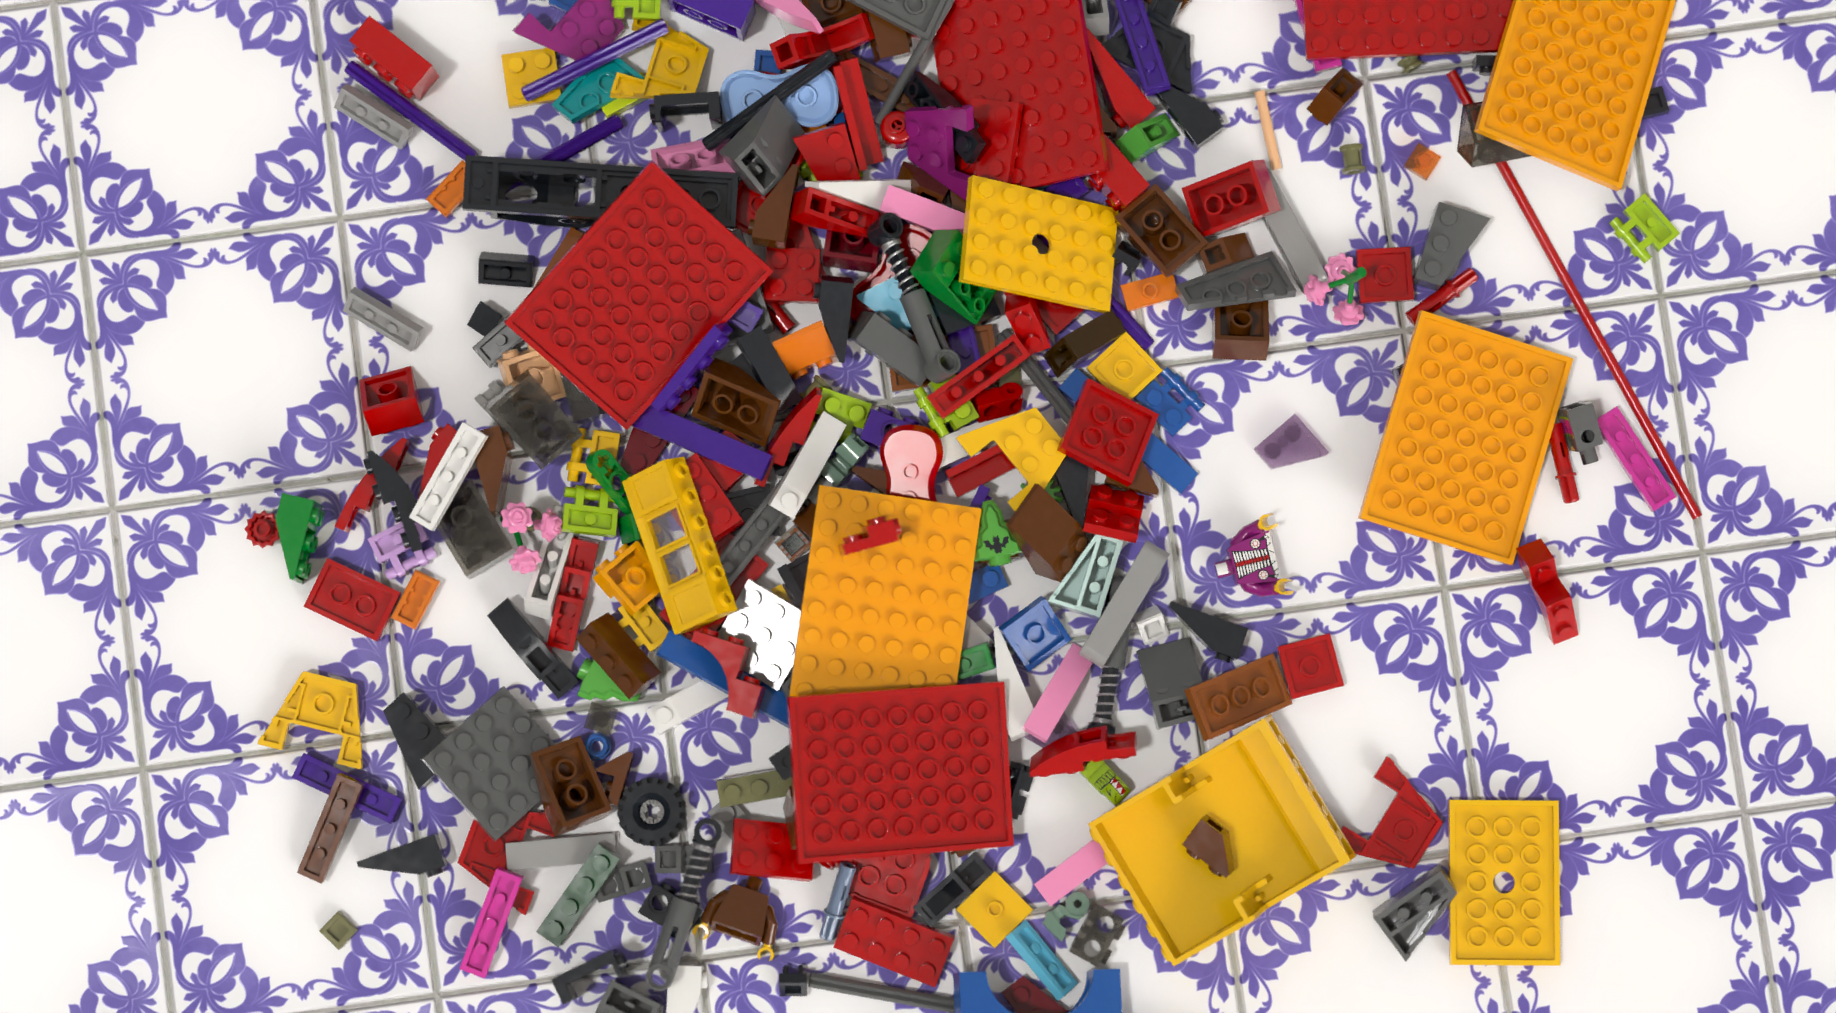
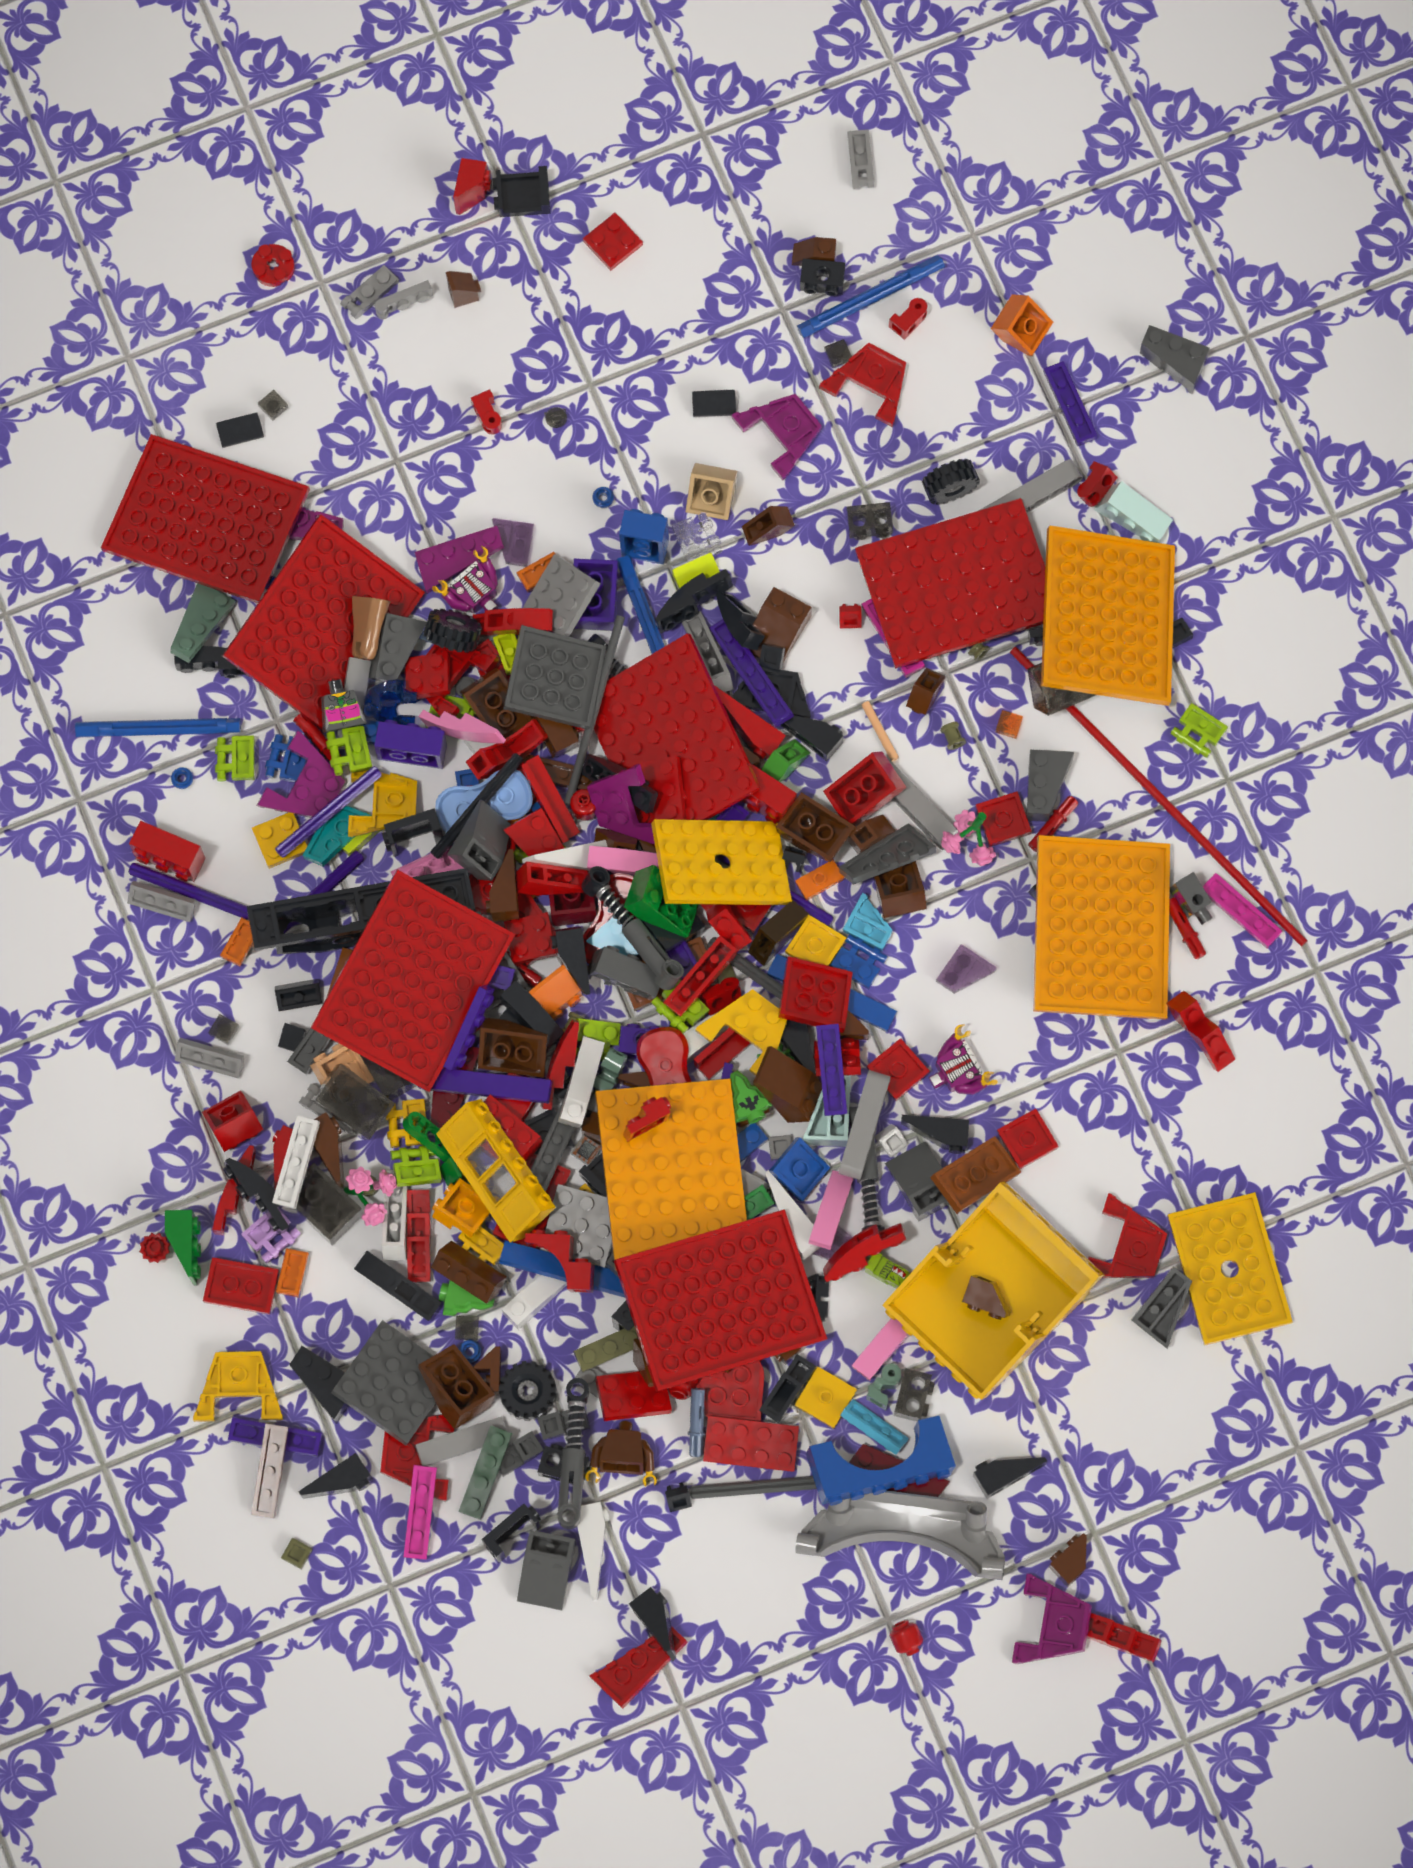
camera: 10 degrees left, 10 degrees down
(408, 289) = (223, 1029): none -> clear smoke plate
(1018, 598) = (778, 1145): none -> light grey tile
(1102, 530) = (831, 1069): none -> dark purple plate
(1184, 541) = (902, 1066): none -> red plate
(1192, 360) = (868, 924): none -> medium azure wing

